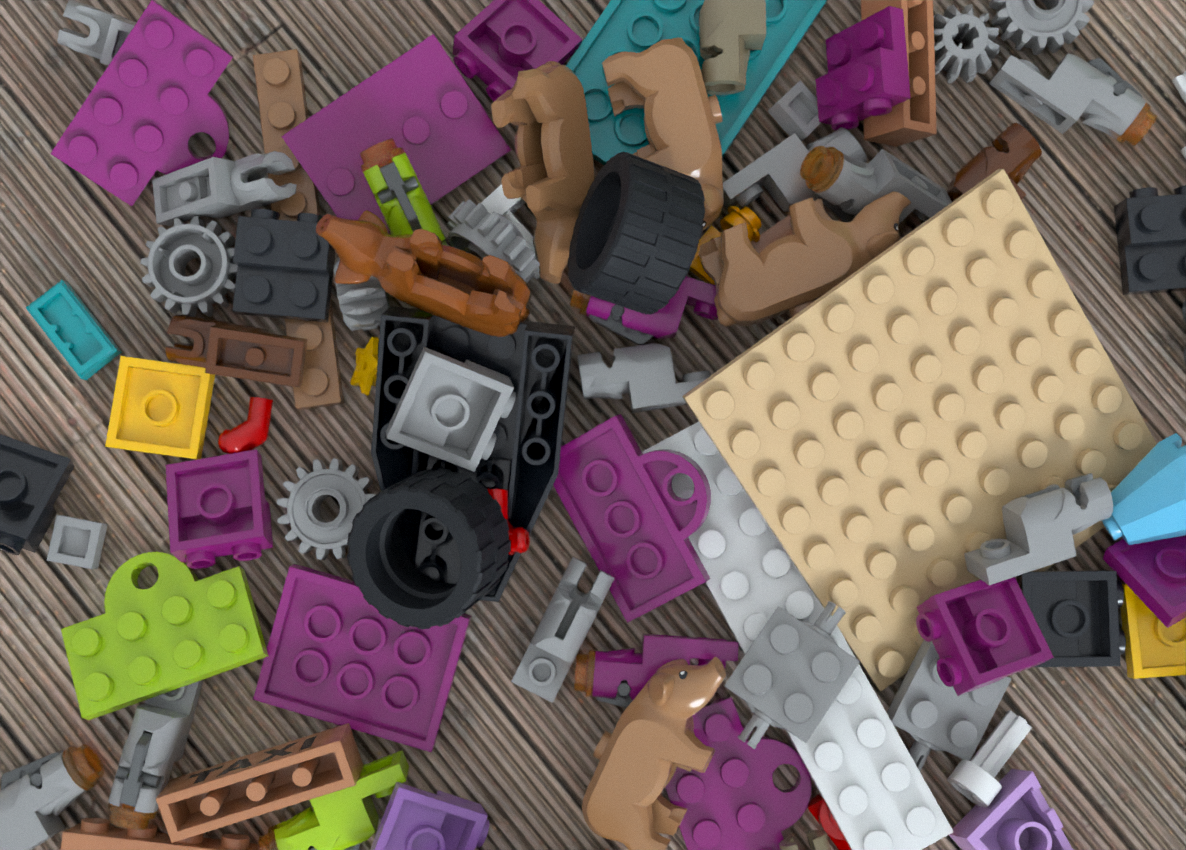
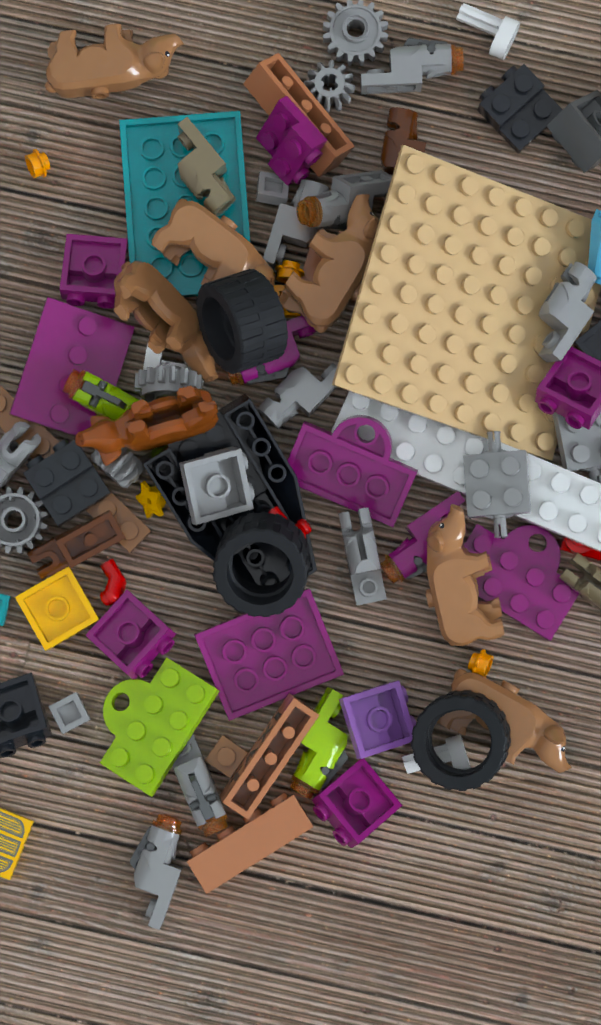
camera: 40 degrees left, 0 degrees up
(218, 738) = (226, 756): none -> medium nougat plate
(305, 504) = (173, 591): light grey gear -> none

